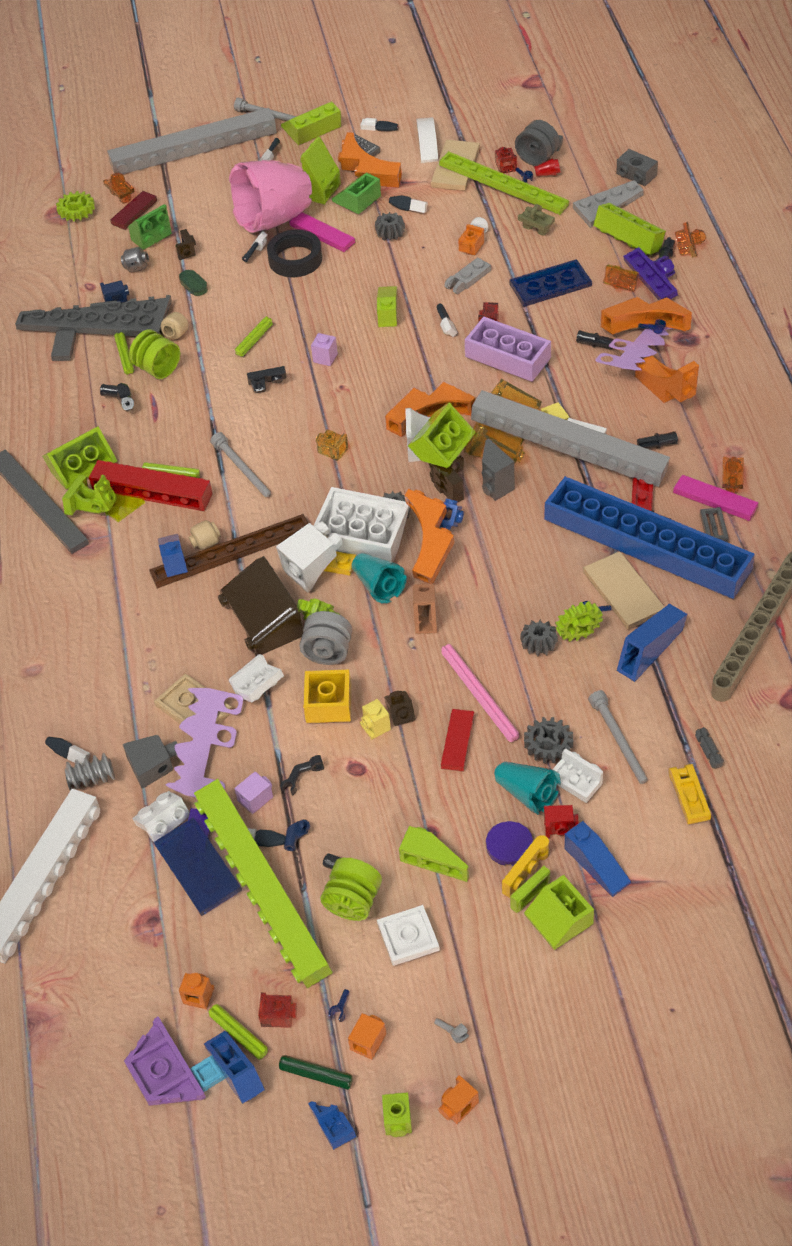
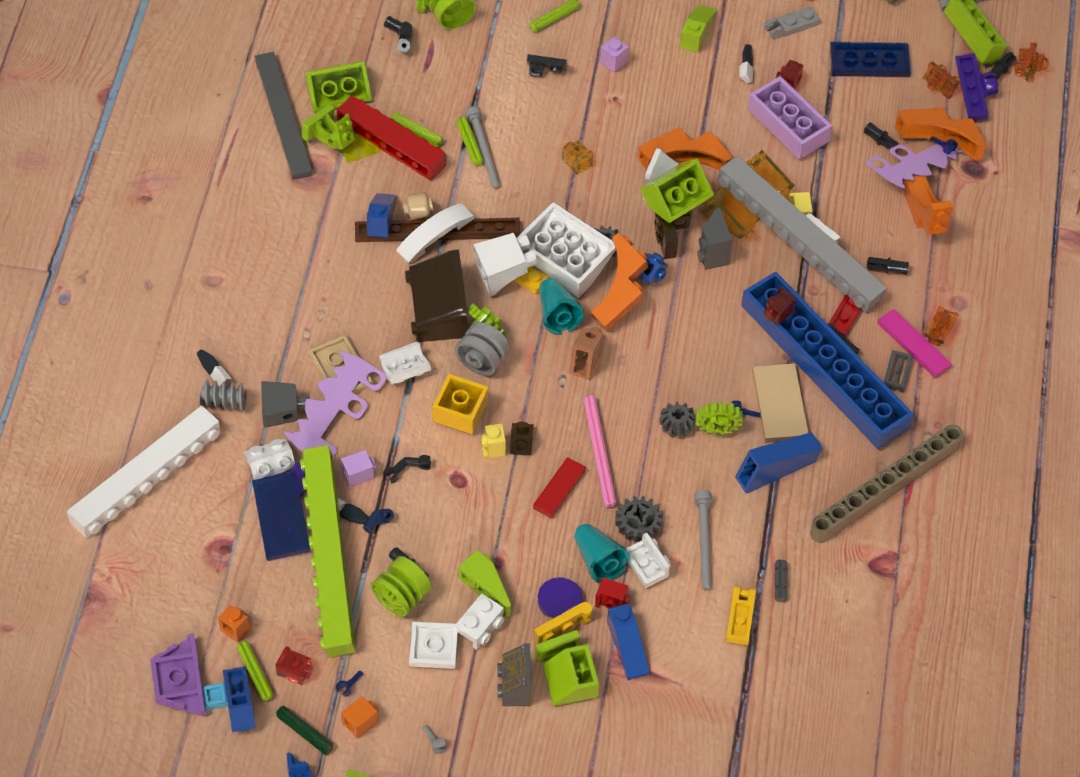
camera: 15 degrees right, 5 degrees up
(226, 465) = (470, 141): none -> lime axle
(227, 551) = (431, 230): none -> white slope
(443, 893) = (480, 621): none -> white bracket
(506, 934) = (515, 677): none -> dark grey slope
(587, 502) = (780, 306): none -> clear red brick

